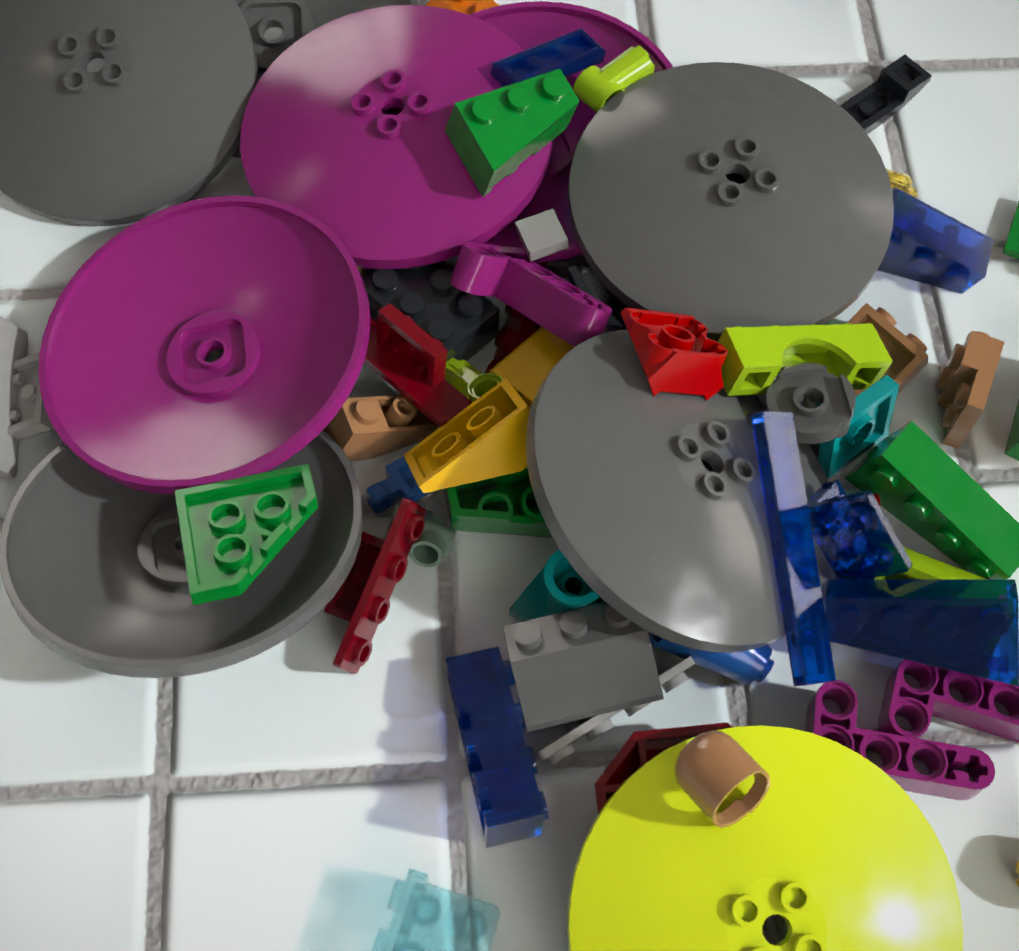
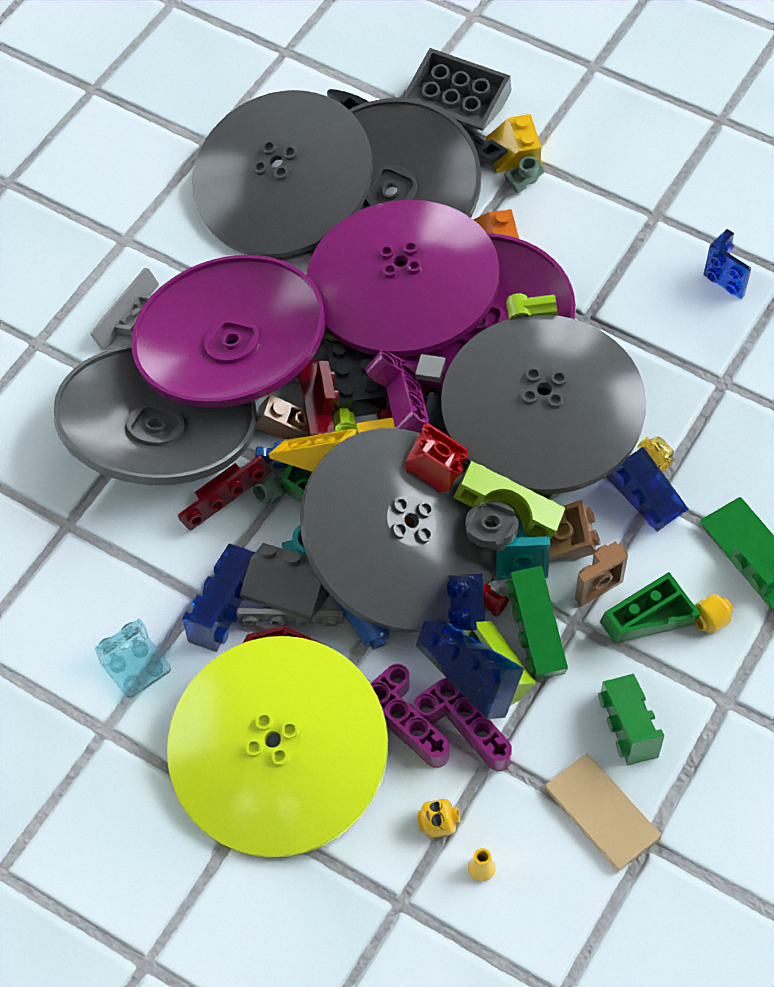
camera: 40 degrees right, 5 degrees down
(239, 527) = (175, 423): green plate -> none
(509, 125) = (449, 302): green wedge -> none
(568, 52) = (504, 280): clear blue tile -> none
(712, 768) = (293, 645): medium nougat helmet -> none
(793, 548) = (425, 586): clear blue tile -> none
(890, 93) = (693, 404): black slope -> none

